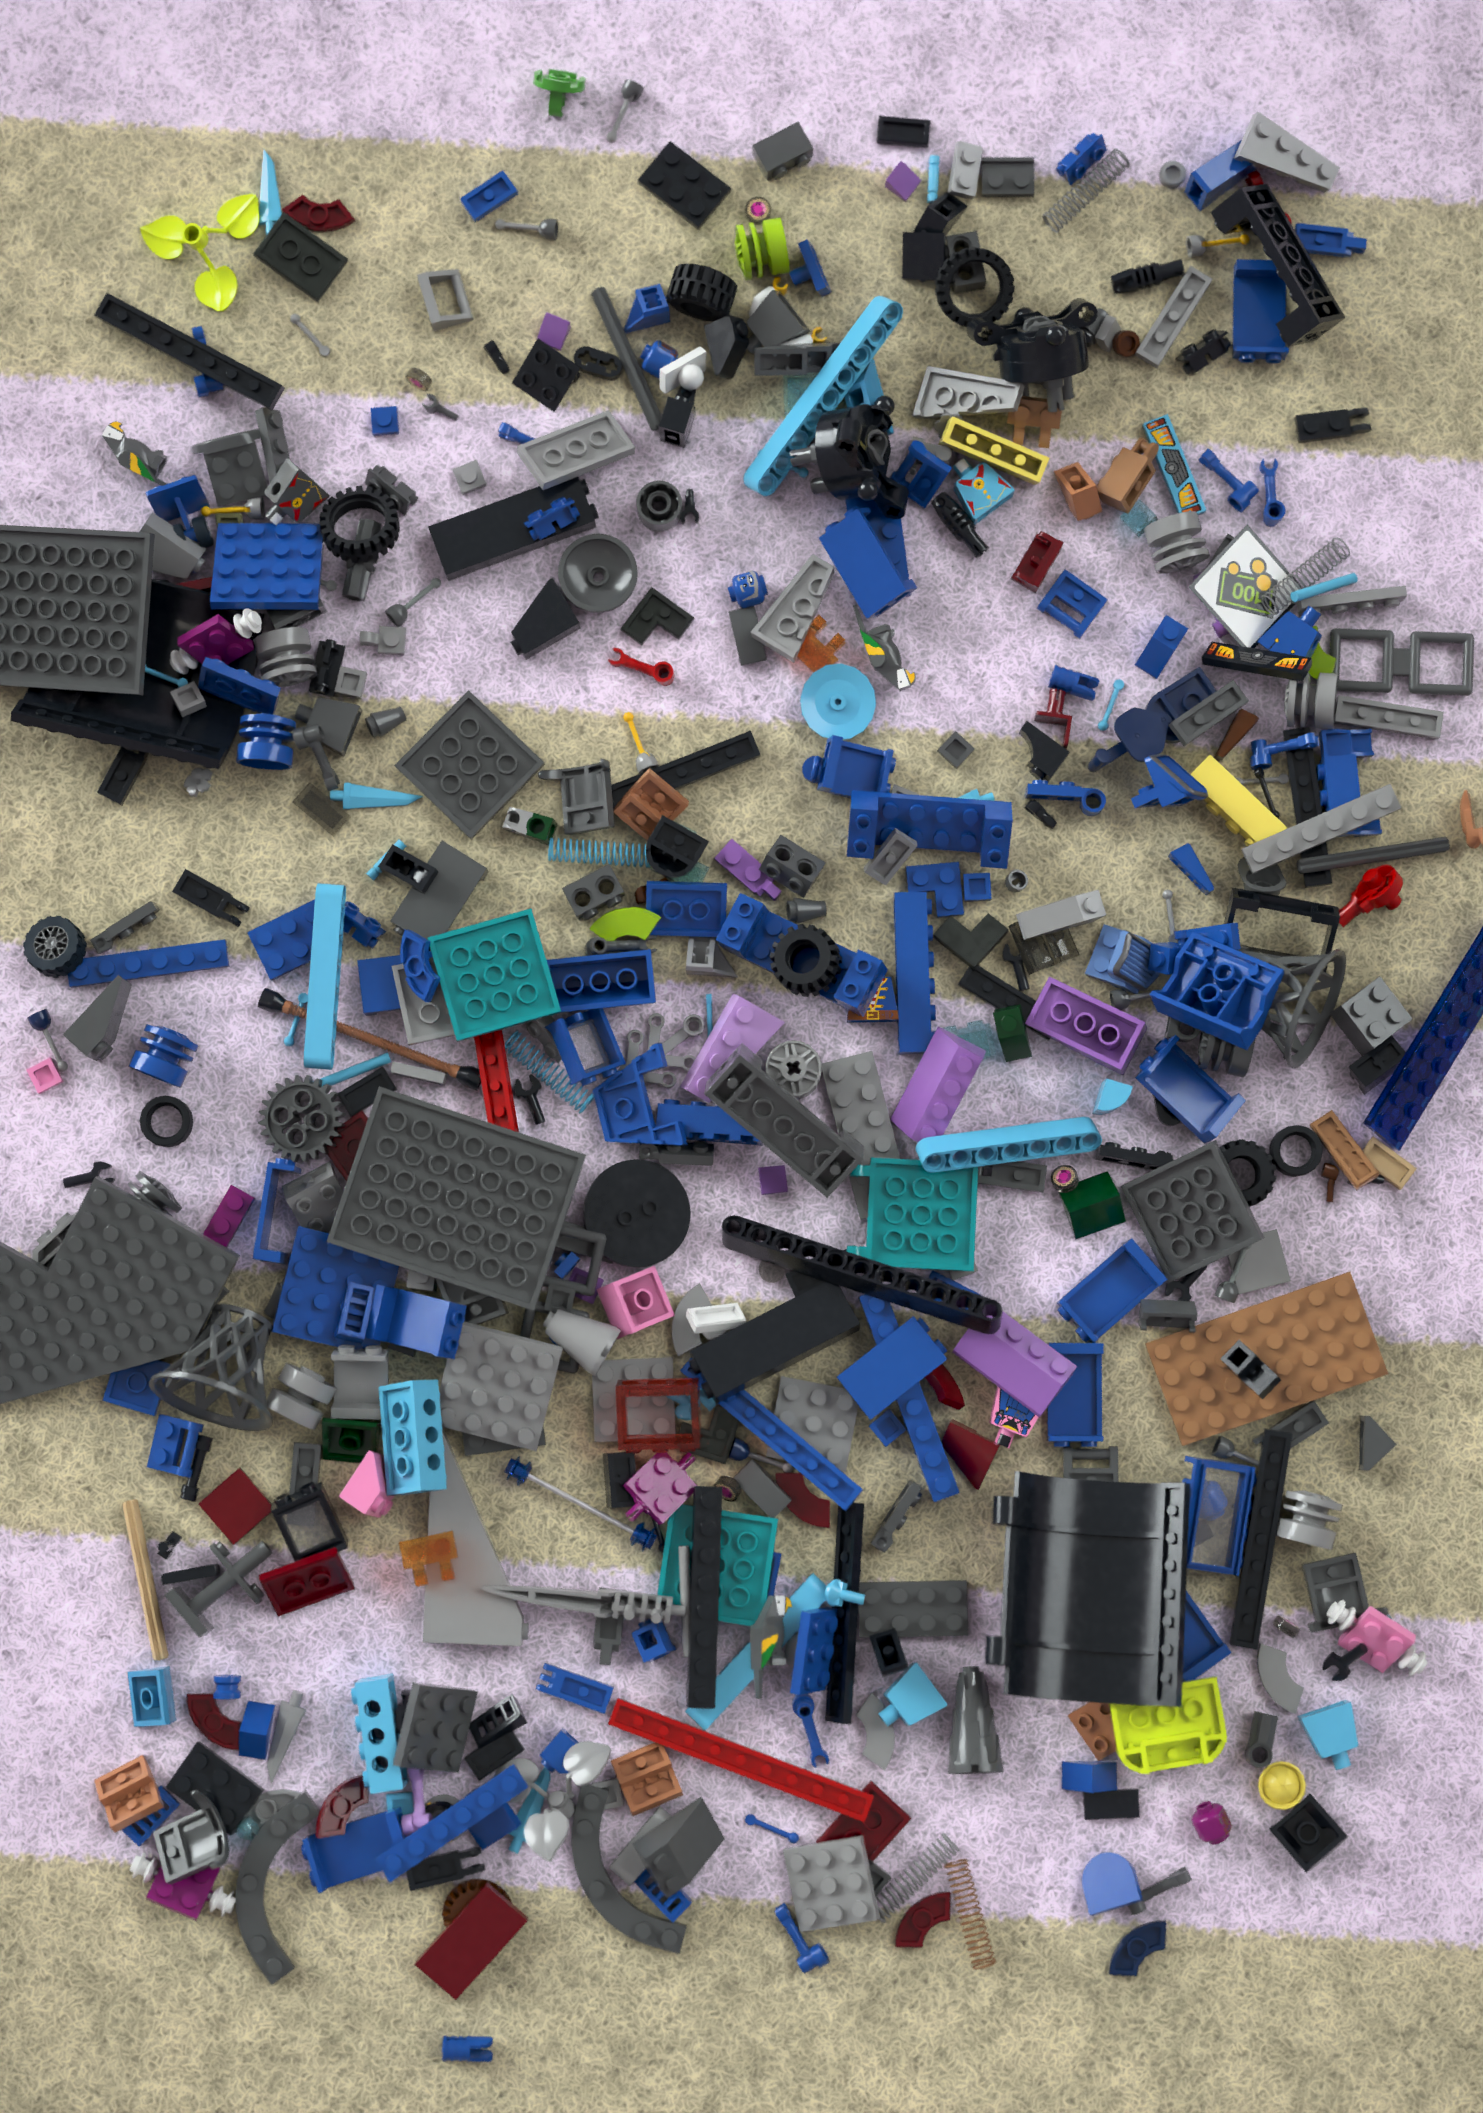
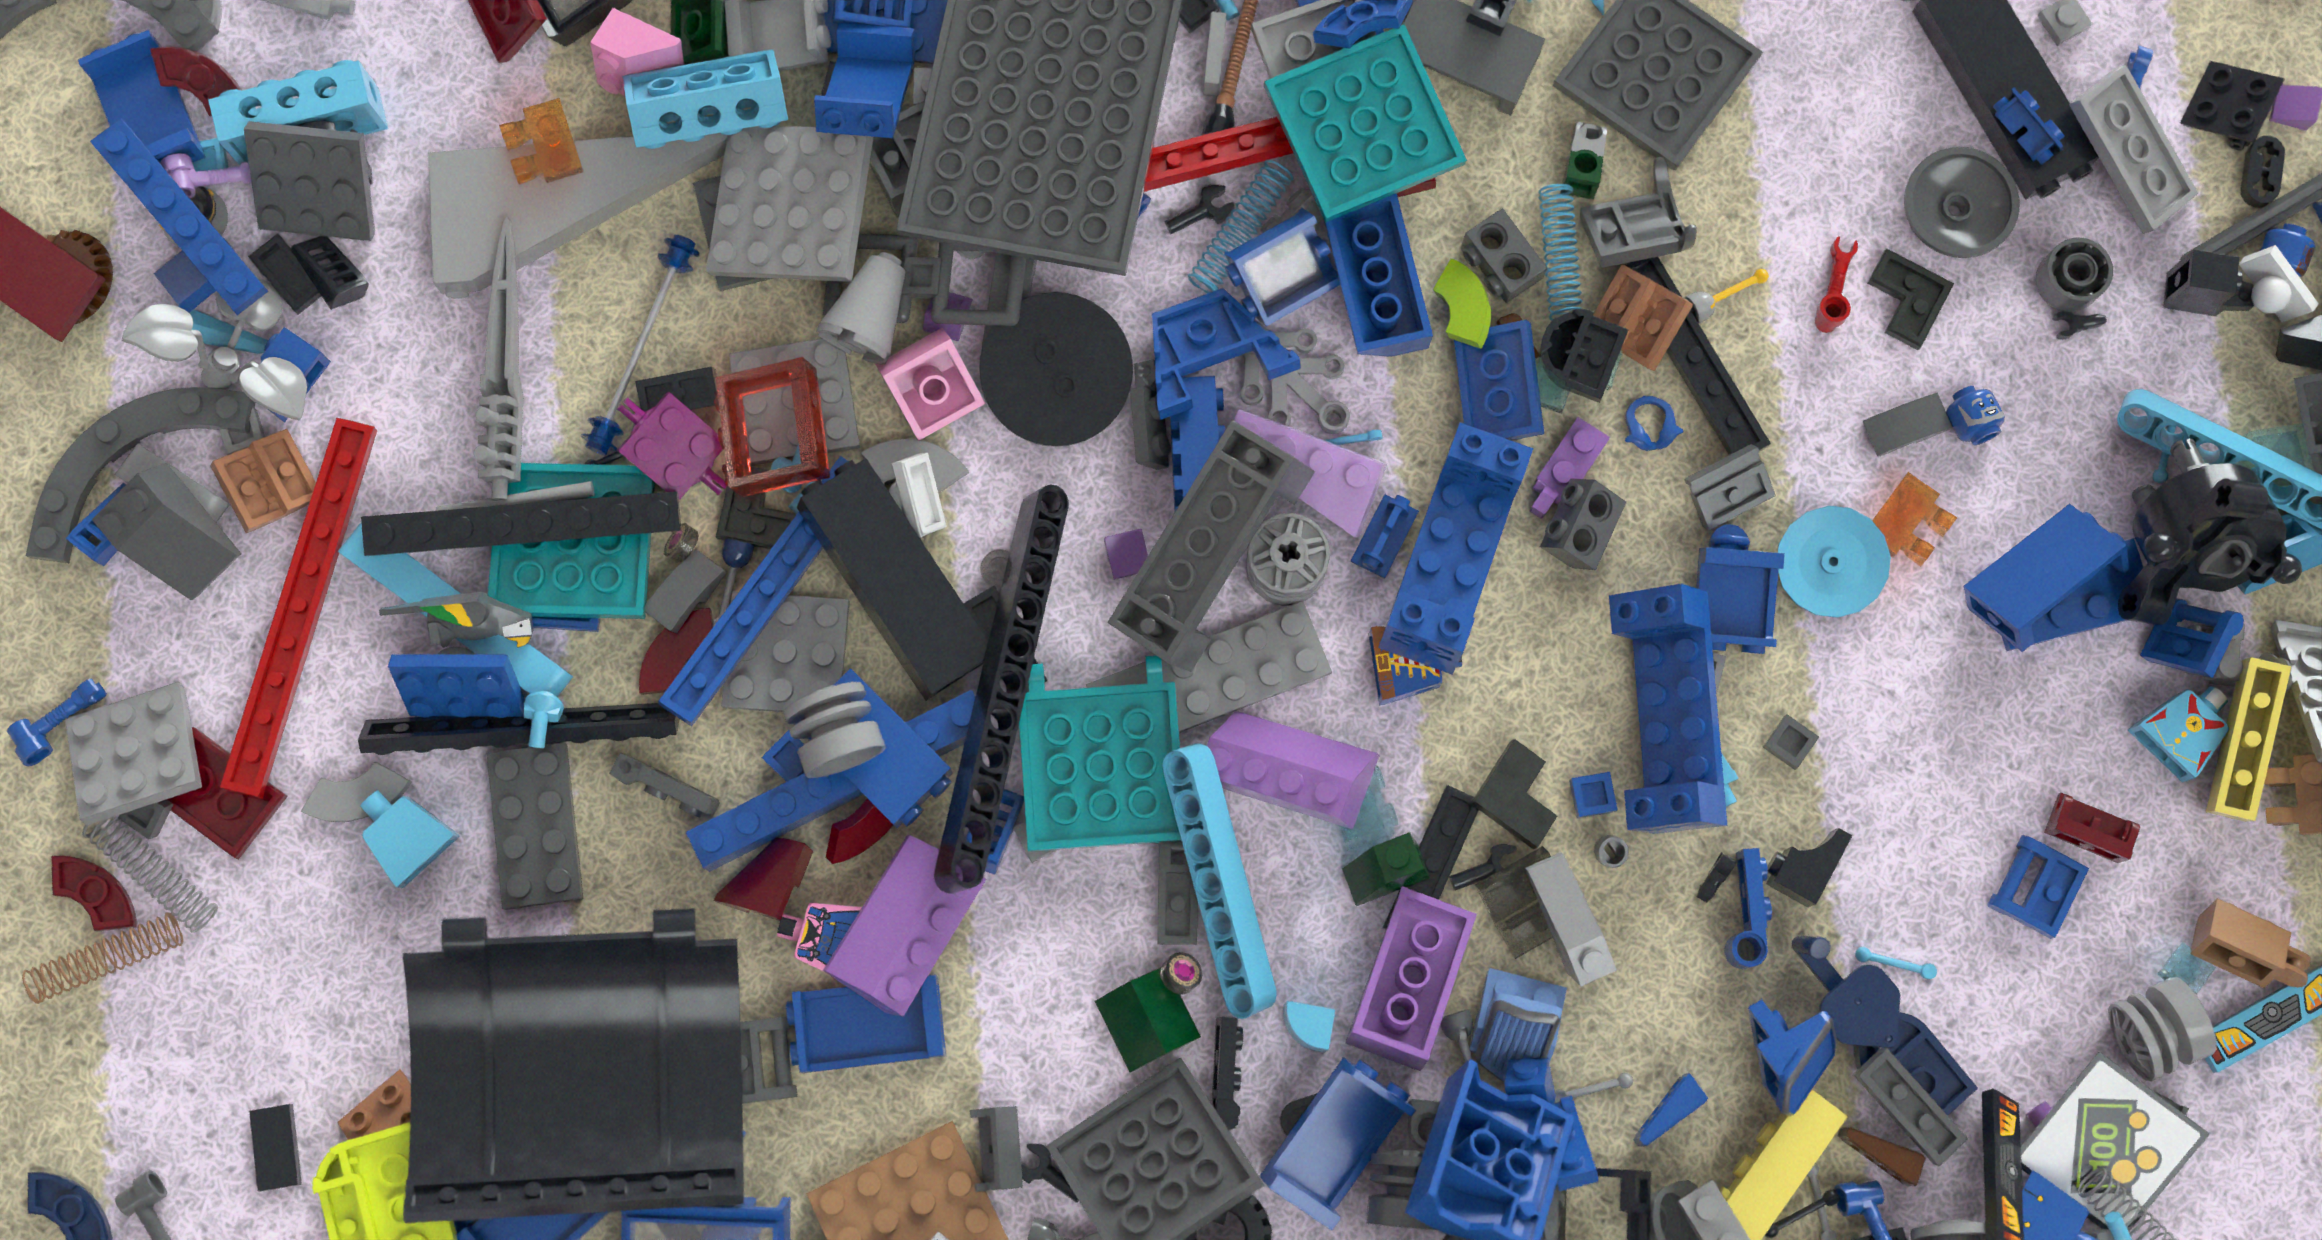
camera: 80 degrees right, 5 degrees down
(442, 1869) = (124, 224): black hinge -> none
(496, 356) = (2244, 34): black piece -> none
(544, 622) = (1877, 141): black slope -> none
(566, 1264) = (972, 283): blue plate -> none
(576, 1688) = (384, 370): blue hinge -> none
(608, 1636) = (459, 403): dark grey hinge -> none
(609, 946) = (1431, 295): dark grey brick -> none
(647, 1647) = (454, 465): blue brick -> none
(707, 959) = (1430, 422): light grey slope -> none
(731, 819) = (1637, 433): none -> blue piece
(751, 1820) = (219, 634): blue hinge -> none
(777, 762) = (1730, 487): none -> plate
(781, 1001) = (1385, 535): none -> blue hinge
(791, 615) = (1951, 480): light grey wing -> none
(795, 942) = (1457, 523): black tyre -> none
(802, 910) = (1522, 552): dark grey cone -> none
(806, 1715) = (372, 686): blue brick -> none
(883, 1389) = (831, 722): none -> light grey wheel
(884, 654) = (1915, 619): dark grey animal -> none
(888, 1652) = (462, 794): black slope -> none
(890, 856) = (1619, 661): light grey plate -> none
(912, 971) = (1457, 715): blue brick -> none
(943, 880) = (1594, 747): blue plate -> none
(959, 523) = (2127, 706): black hinge -> none
(974, 1740) = (347, 931): dark grey cone -> none
(1054, 714) = (1867, 879): dark red bracket -> none
(1073, 683) = (1920, 901): blue hinge -> none
(1078, 491) = (2209, 876): nougat slope -> none
(1089, 1776) = (312, 1111): blue slope -> none
(1110, 1291) = (1022, 1060): blue panel -> none
(1110, 1883) = (156, 1156): tile -> none
(1161, 646) = (1998, 1027): blue slope -> none
(1242, 493) = (2253, 1124): blue brick -> none
(1272, 505) = (2244, 1172): blue brick -> none

